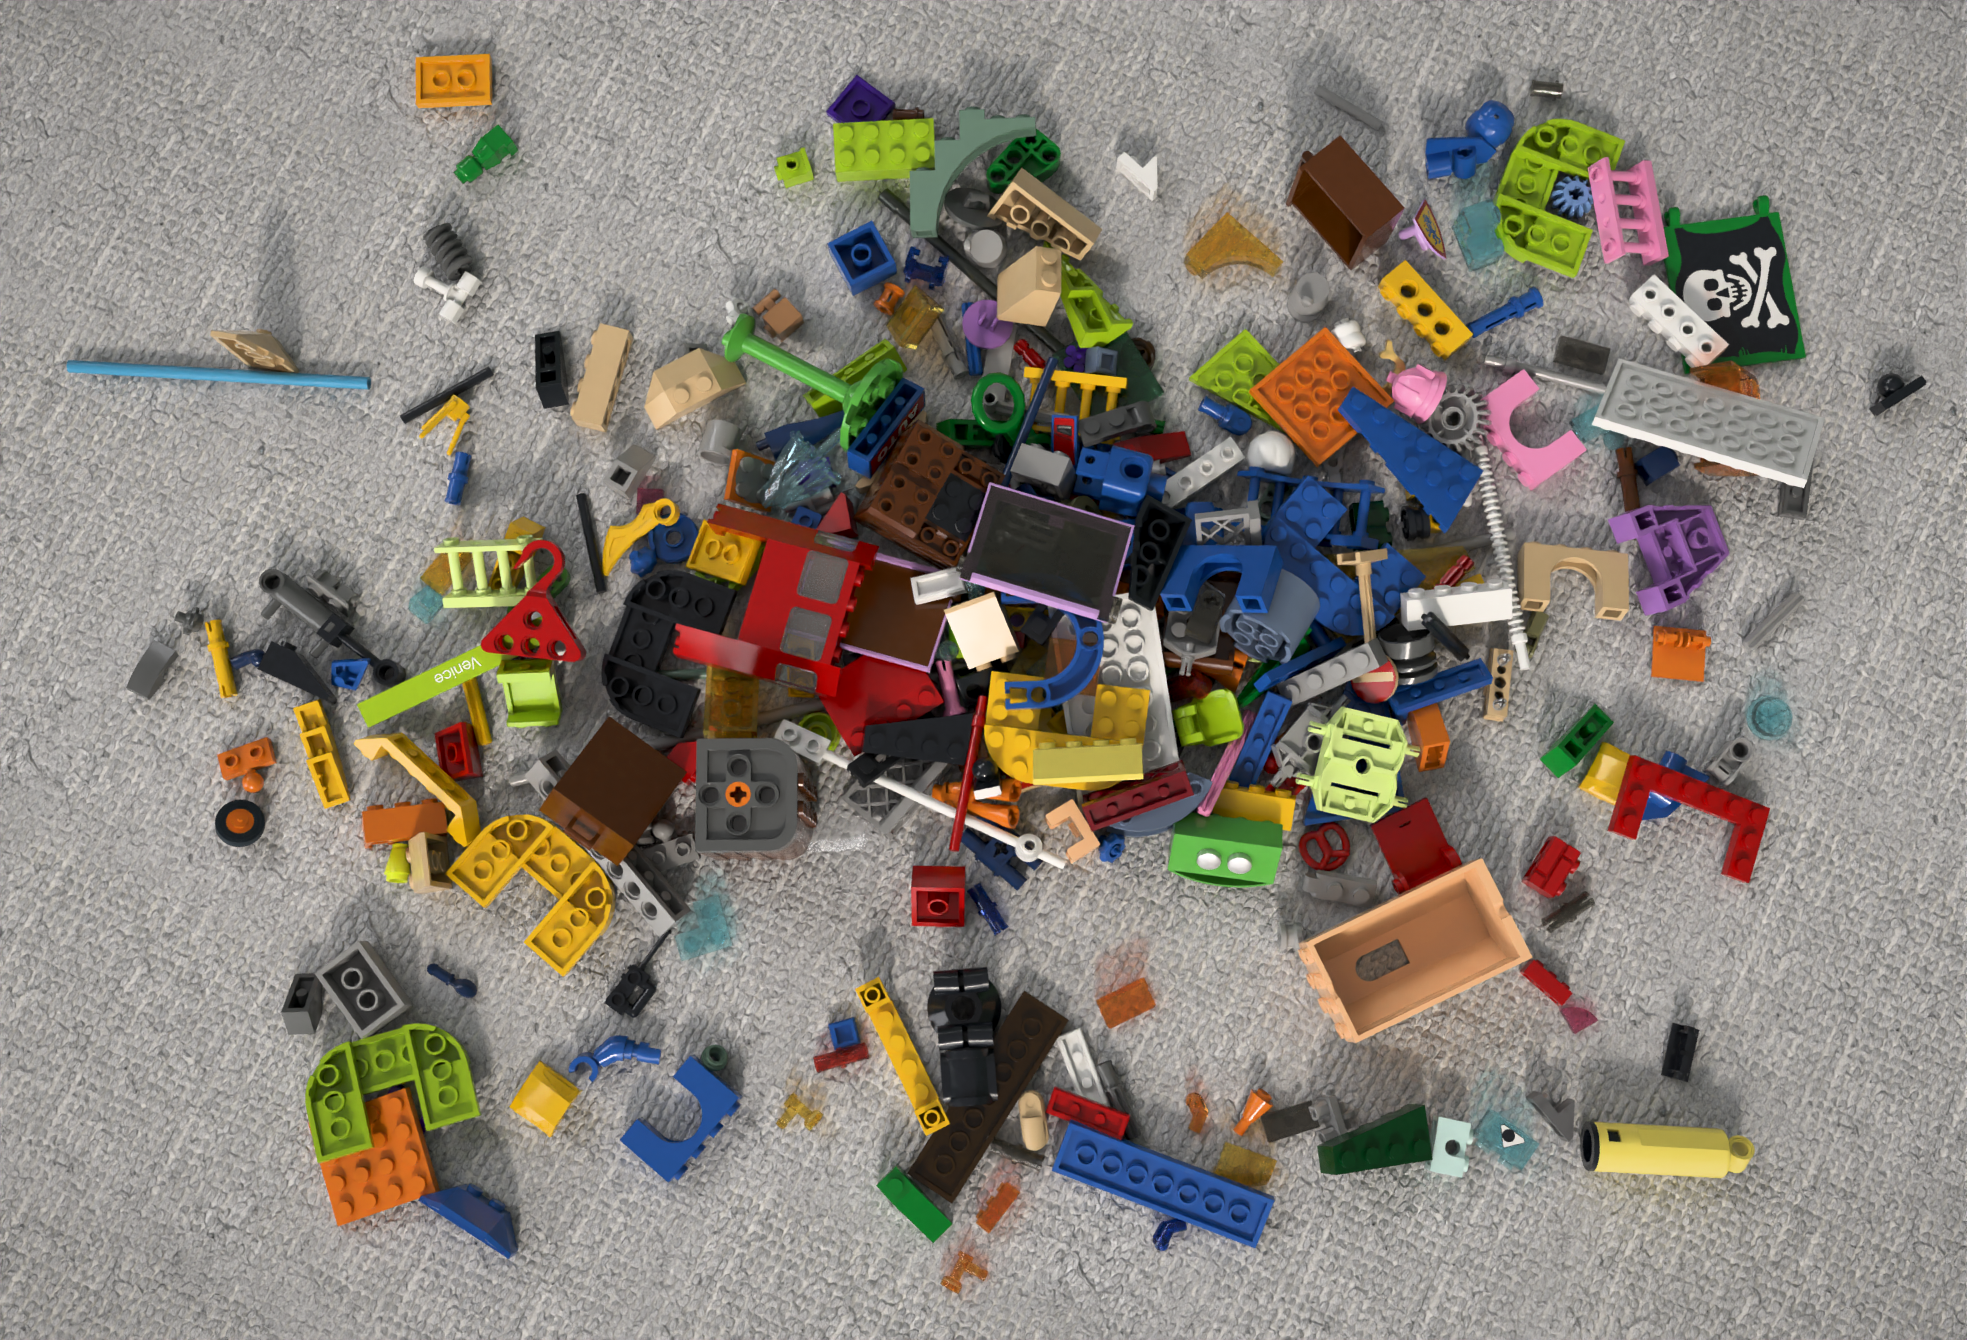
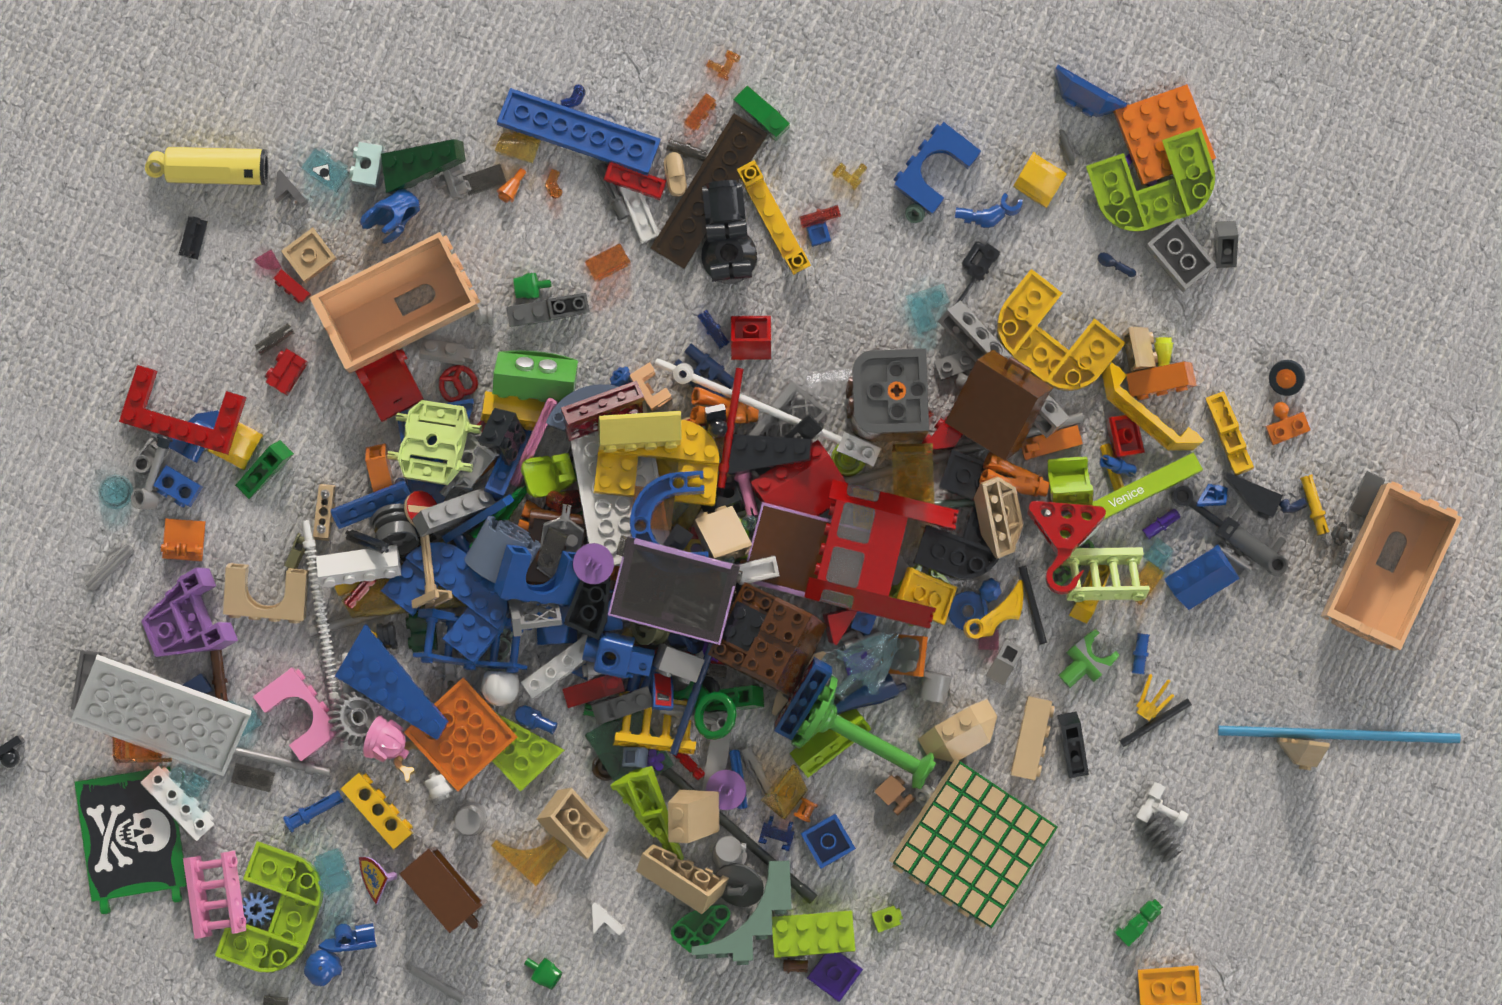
camera: 175 degrees right, 5 degrees up
(123, 529) = (1384, 603): none -> light nougat panel
(371, 569) = (1201, 578): none -> blue slope
(419, 640) = (1161, 523): none -> dark purple axle
(467, 713) = (1118, 465): none -> blue pin
(505, 1133) = (1068, 152): none -> dark grey piece
(528, 470) = (1085, 661): none -> bright green connector
(567, 744) = (1058, 441): none -> orange hinge
(590, 696) = (1024, 480): none -> orange piece
(622, 646) = (999, 515): none -> tan wedge
(682, 248) = (972, 844): none -> tan panel
(1152, 589) = (593, 563): none -> medium lavender piece
(1180, 287) = (572, 822): none -> tan slope
(1206, 940) = (547, 310): none -> dark grey slope
(1216, 115) = (545, 973): none -> green piece
(1230, 972) = (529, 286): none -> green piece
(1268, 769) = (503, 433): none -> black bracket
(1412, 1079) = (392, 214): none -> blue hair
(1524, 1024) = (309, 255): none -> tan plate
(1659, 343) = (192, 785): none -> clear light blue plate
(1687, 727) = (179, 484): none -> blue brick
(1728, 707) = (147, 497): none -> light grey piece

